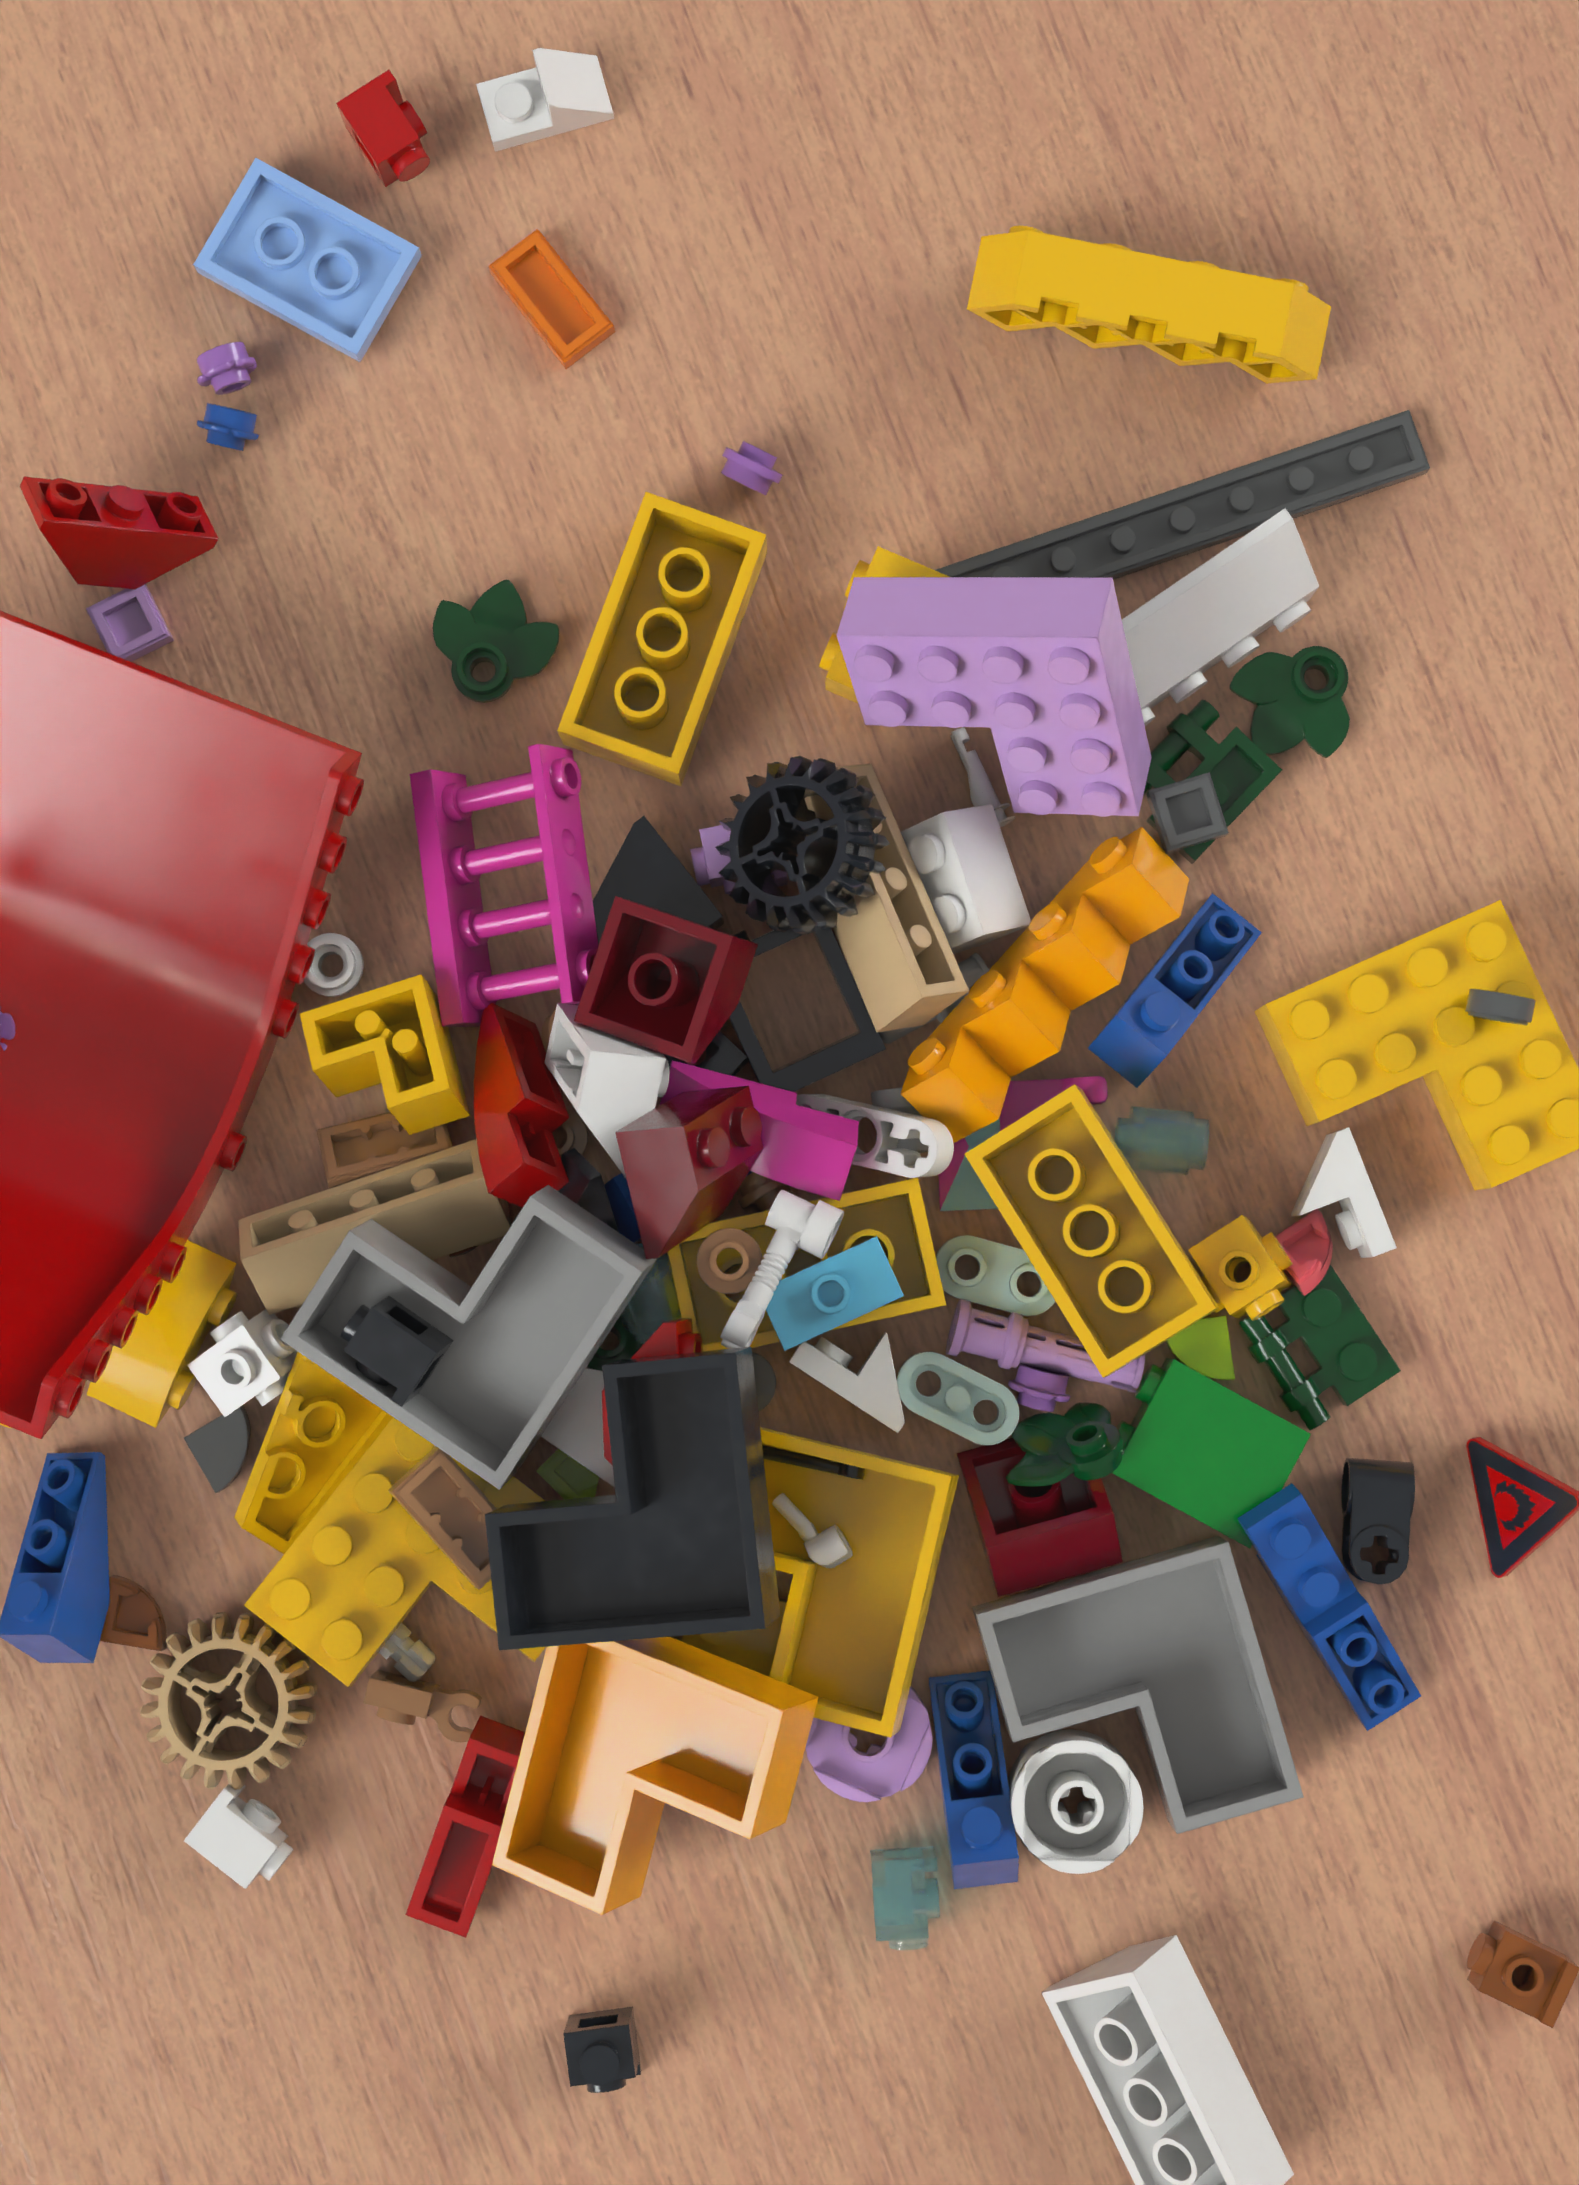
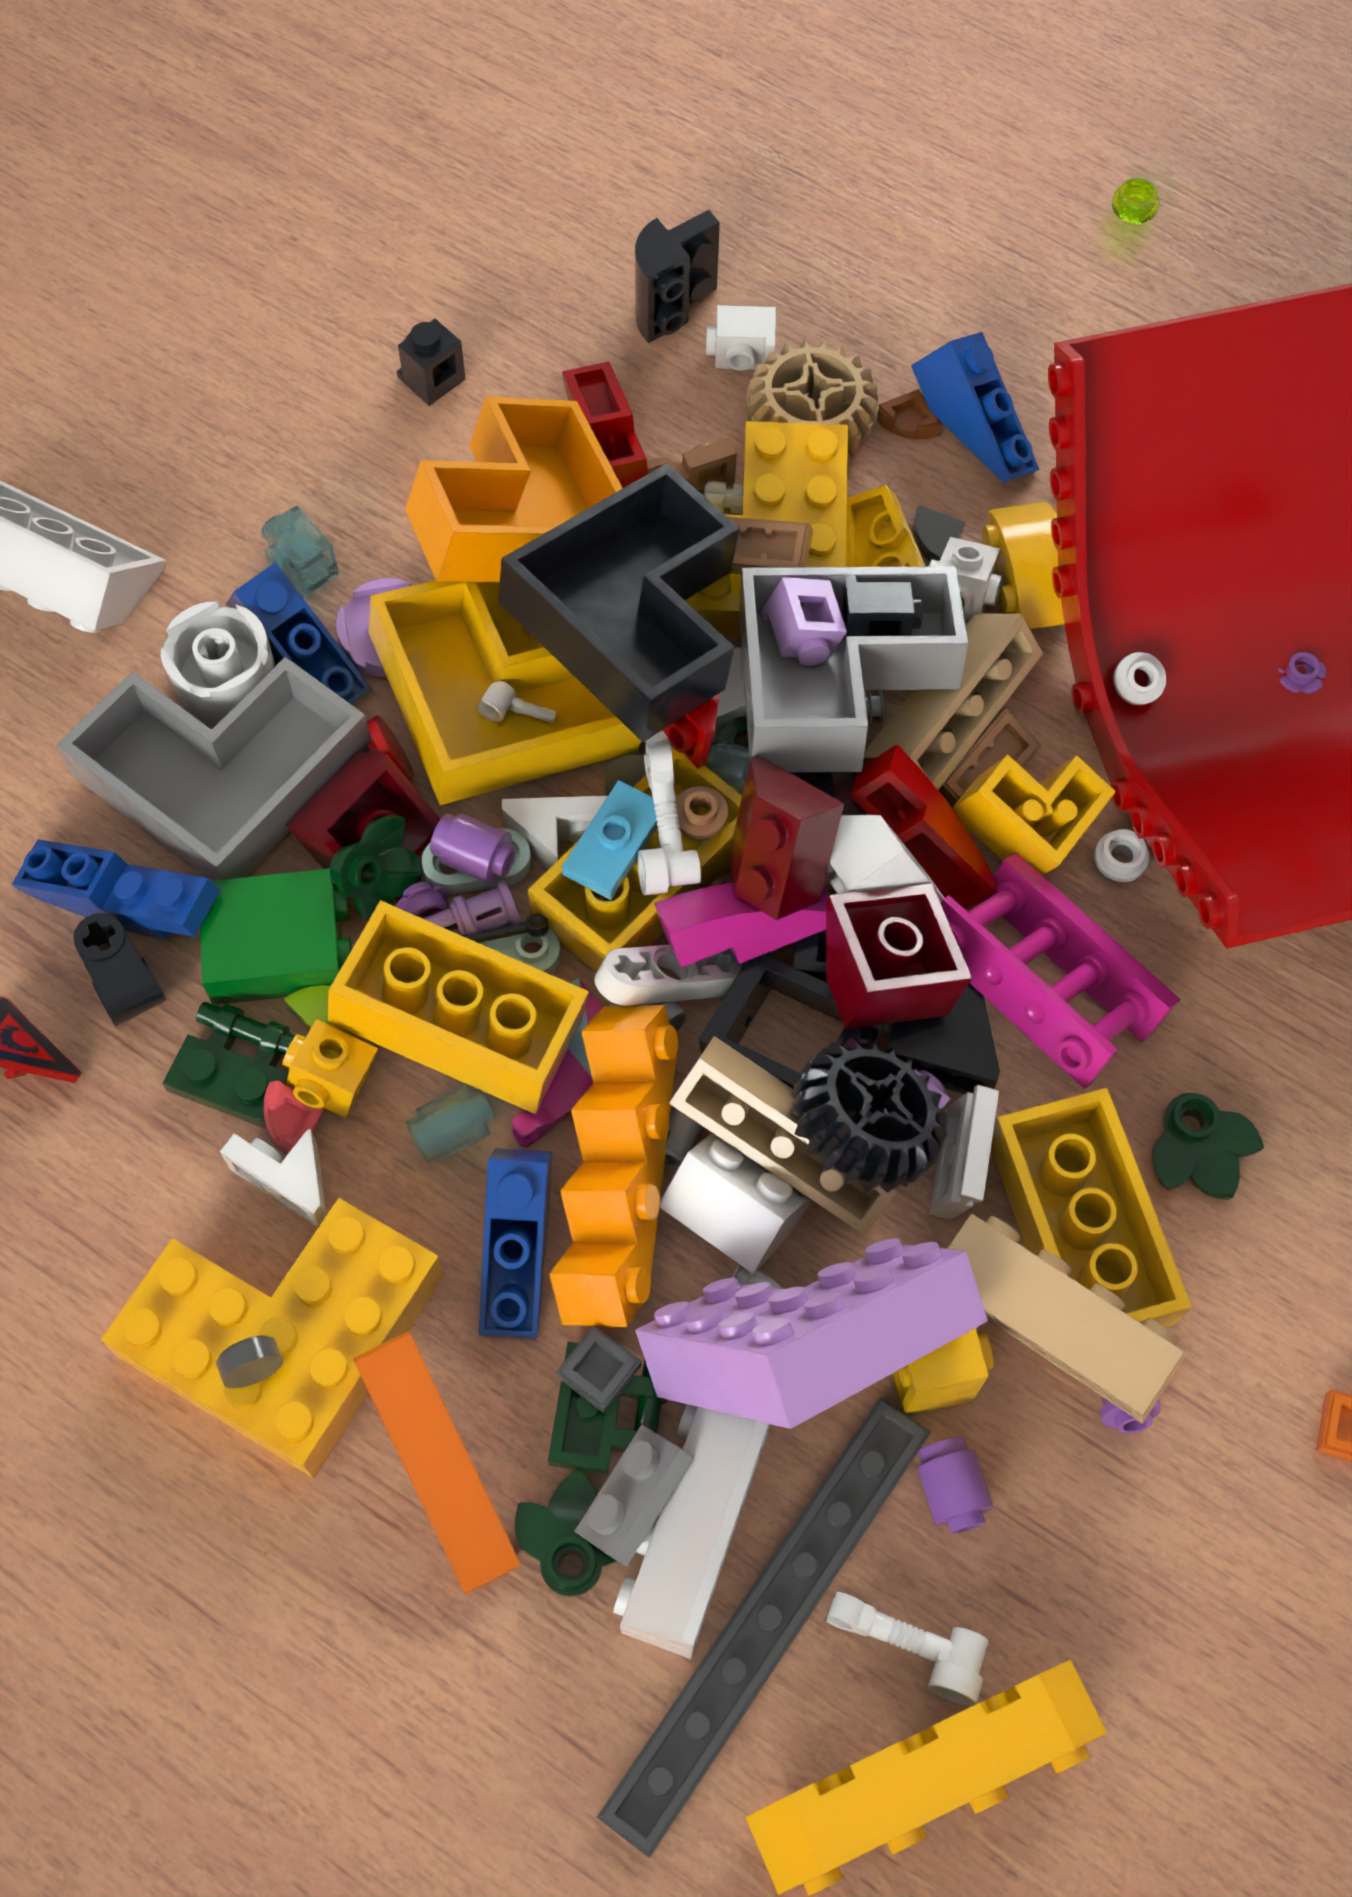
camera: 140 degrees right, 20 degrees down
(165, 1144) = (1127, 687): none -> white plate
(266, 1973) = (673, 272): none -> black brick
(477, 1387) = (808, 630): none -> lavender brick
(705, 788) = (965, 1153): none -> white plate
(775, 553) = (1066, 1322): none -> tan brick
(951, 511) = (954, 1485): none -> medium lavender brick
(953, 1280) = (535, 925): none -> black hinge
(961, 1396) = (473, 847): none -> medium lavender brick
(964, 1578) = (386, 743): none -> red piece
(1055, 380) = (955, 1660): none -> white brick
(1233, 682) = (634, 1495): none -> light grey plate
(1380, 832) = (437, 1462): none -> orange slope

